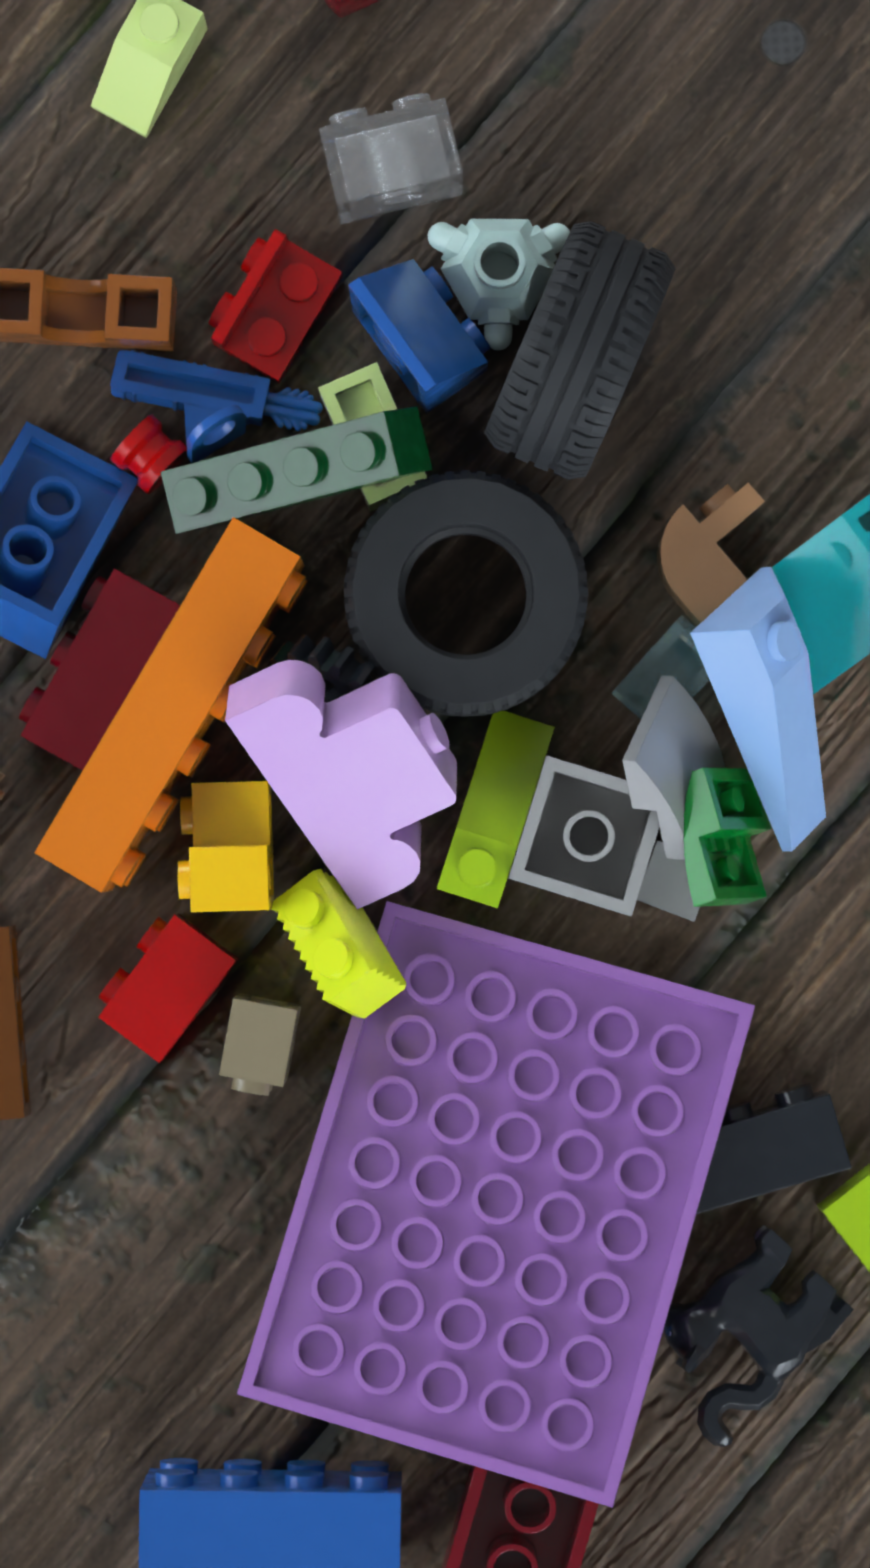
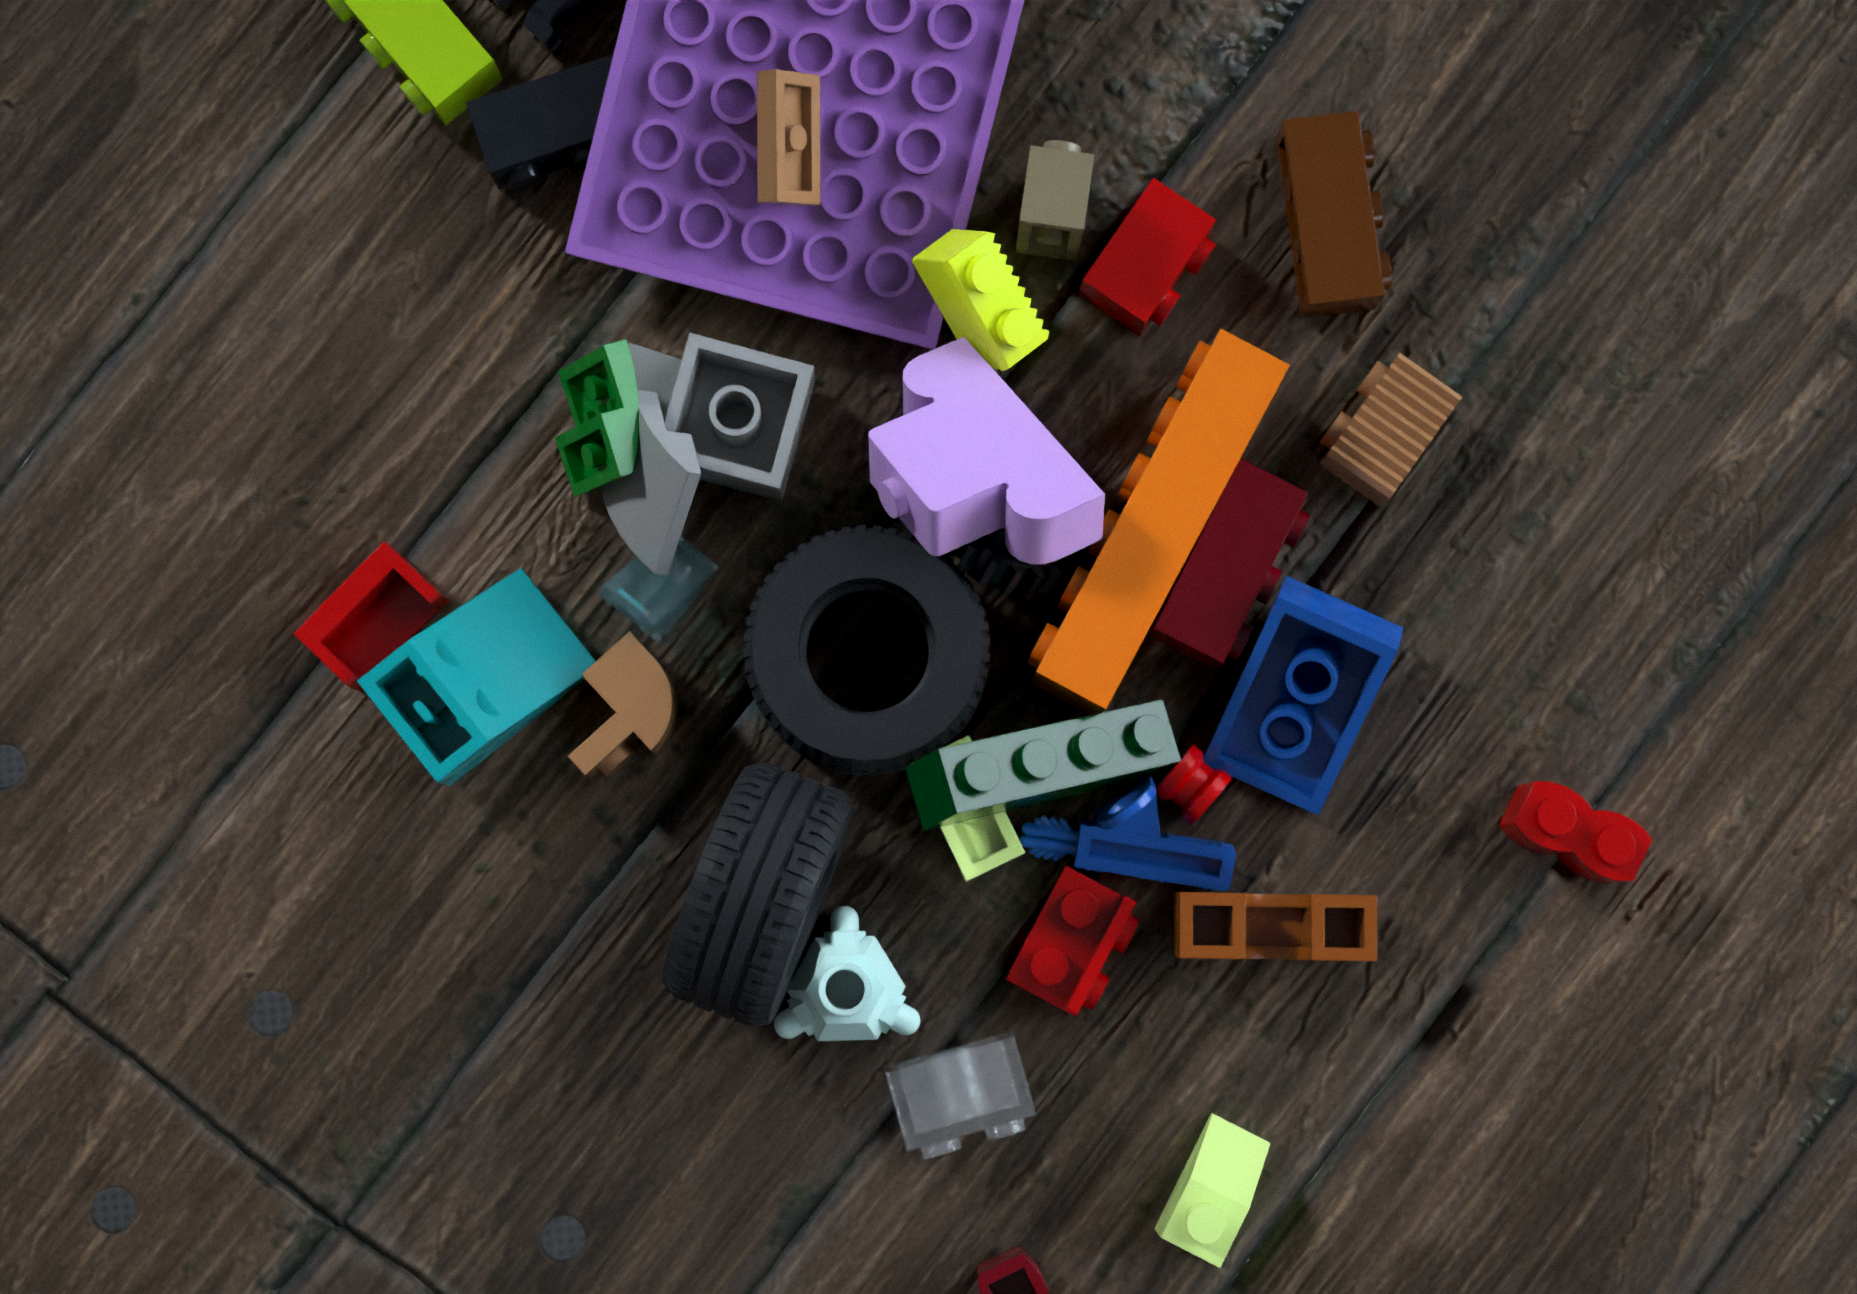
camera: 175 degrees right, 5 degrees down
(231, 847) = (1090, 382): yellow brick -> none
(418, 331) = (923, 915): blue slope -> none
(495, 808) = (830, 440): lime slope -> none
(525, 1106) = (788, 138): none -> medium nougat plate
(767, 697) = (560, 556): light blue wedge -> none

